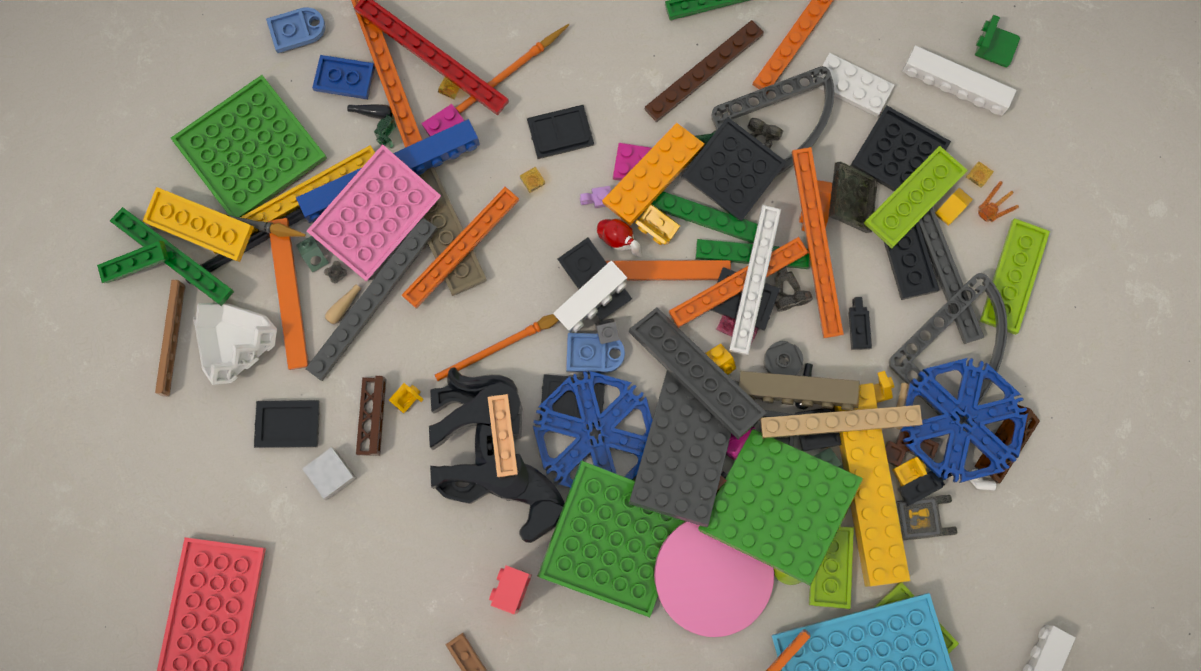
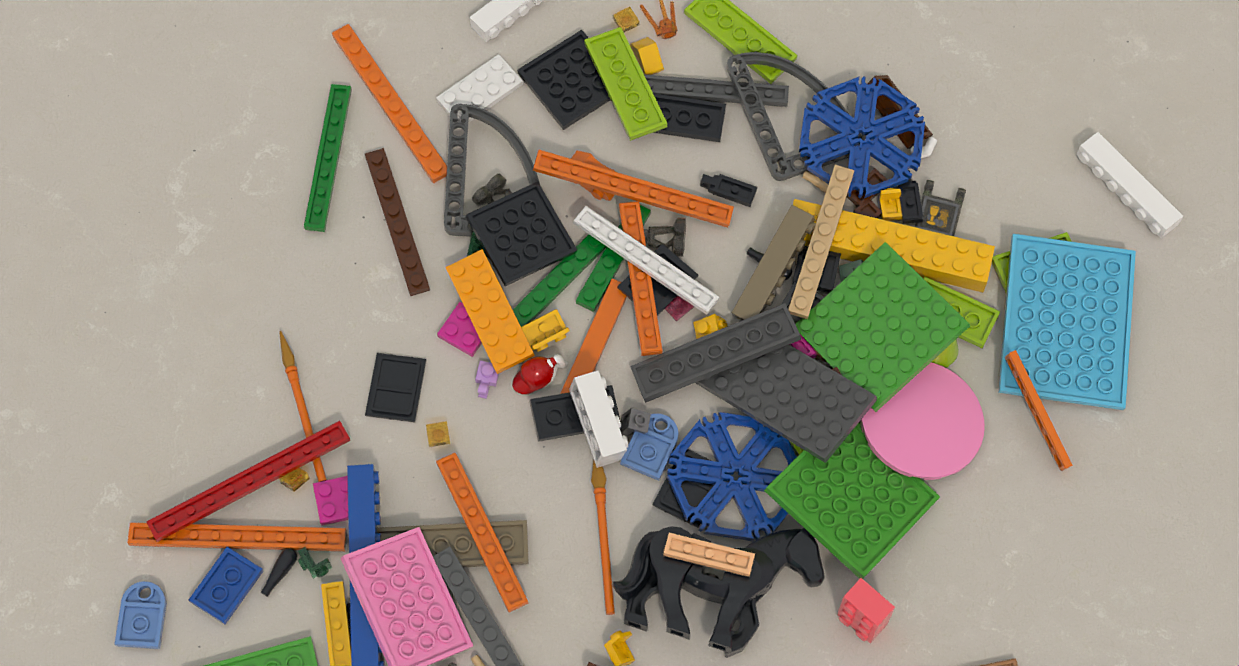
camera: 65 degrees left, 10 degrees down
(789, 351) = (732, 260): dark grey plate -> none
(852, 196) = (600, 138): clear smoke plate -> none
(883, 389) = (801, 191): yellow bracket -> none

